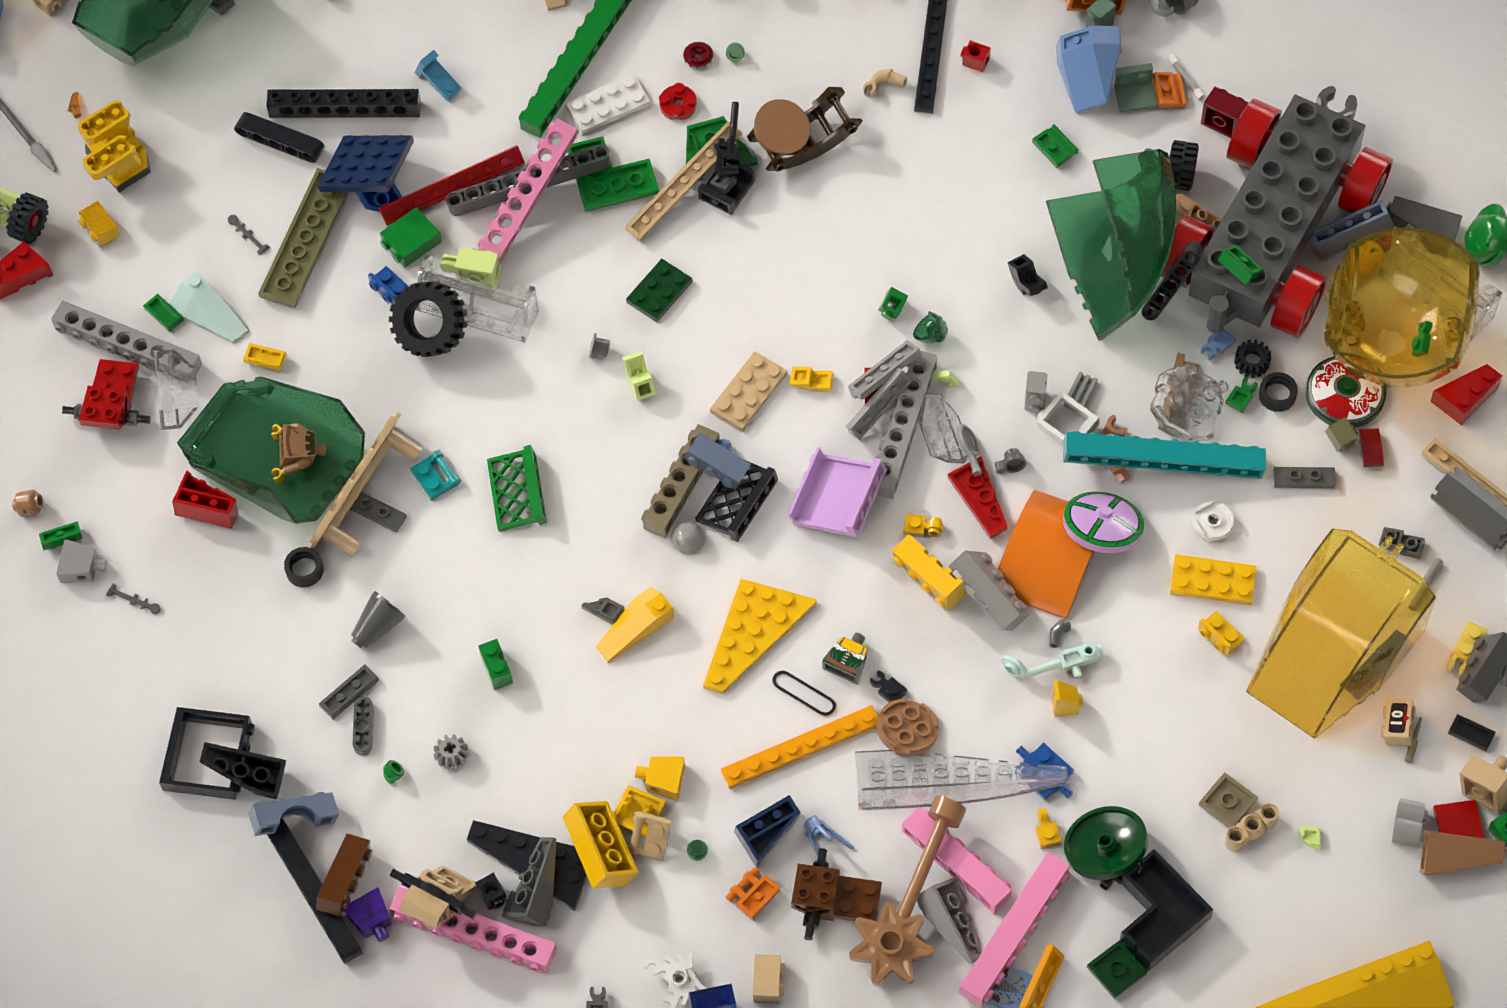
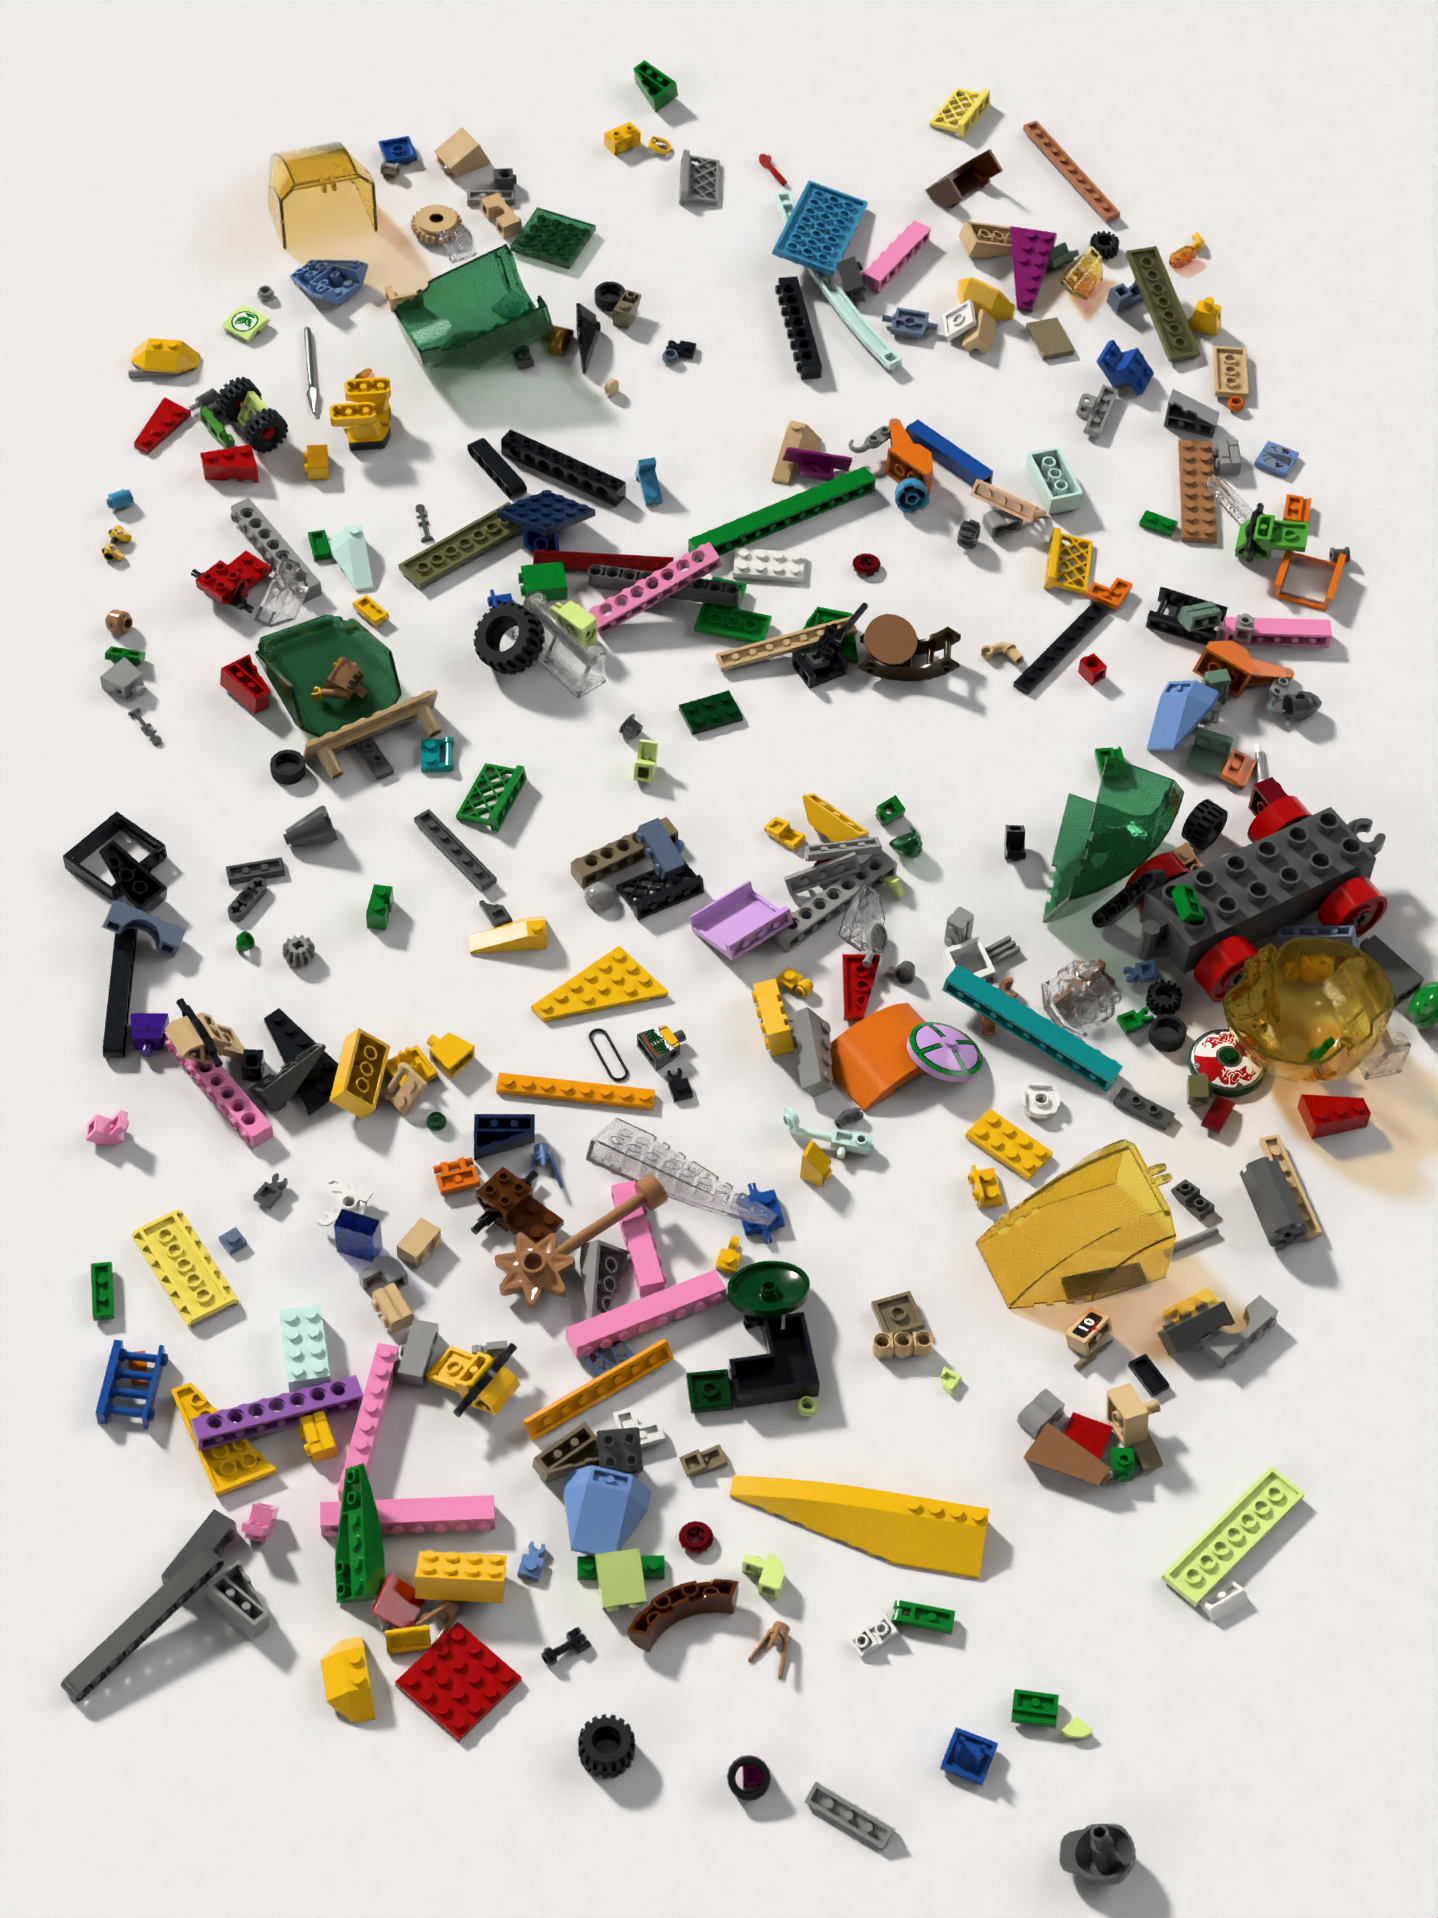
camera: 25 degrees right, 10 degrees down
(343, 875) = (148, 990): reddish brown brick -> none
(522, 565) = (455, 850): none -> dark grey plate
(677, 92) = (821, 582): red plate -> none
(735, 52) = (897, 575): green tile -> none
(748, 391) = (727, 817): tan plate -> none
(850, 344) = (830, 820): none -> yellow wedge
(907, 727) = (671, 1120): medium nougat tile -> none
(1208, 927) = (807, 1401): none -> yellowish green plate

